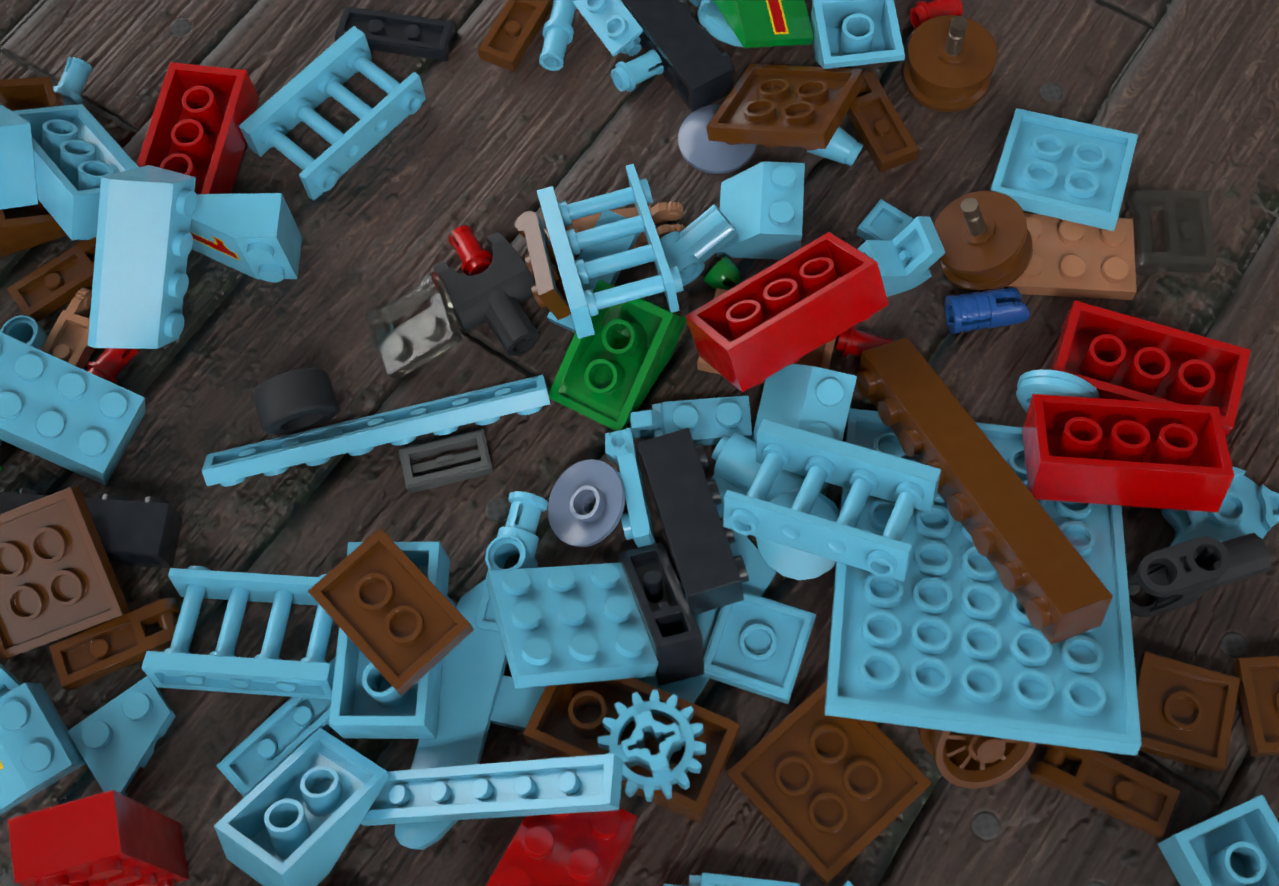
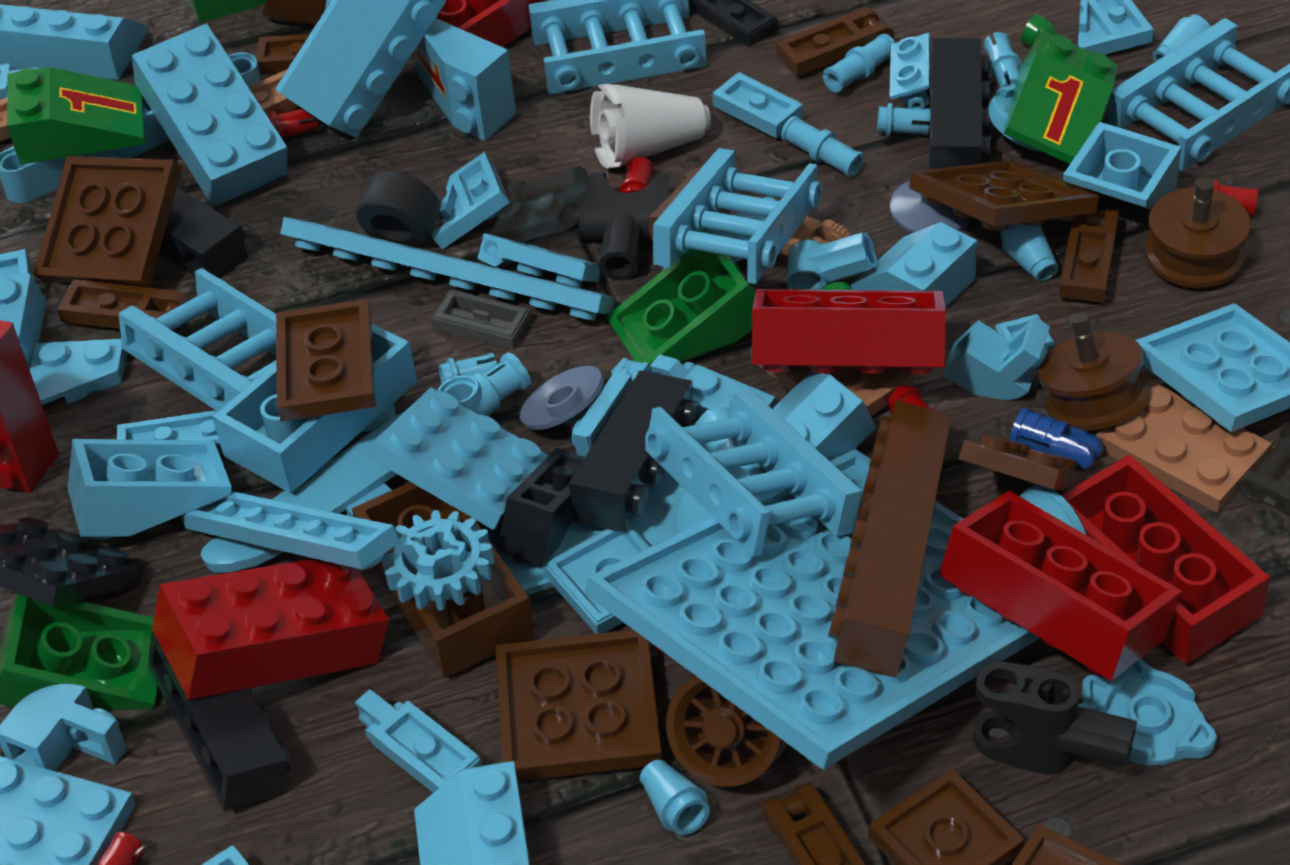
camera: 35 degrees right, 20 degrees down
(343, 349) = (471, 198): none -> medium azure wing
(433, 194) = (643, 122): none -> white cone
(451, 377) = (533, 260): none -> medium azure hinge
(481, 523) = (466, 367): none -> medium azure pin
(508, 119) = (756, 104): none -> medium azure plate
(593, 131) = (822, 146): none -> medium azure pin
(966, 812) = (675, 798): none -> medium azure cone
(1006, 356) = (1023, 462): none -> reddish brown plate

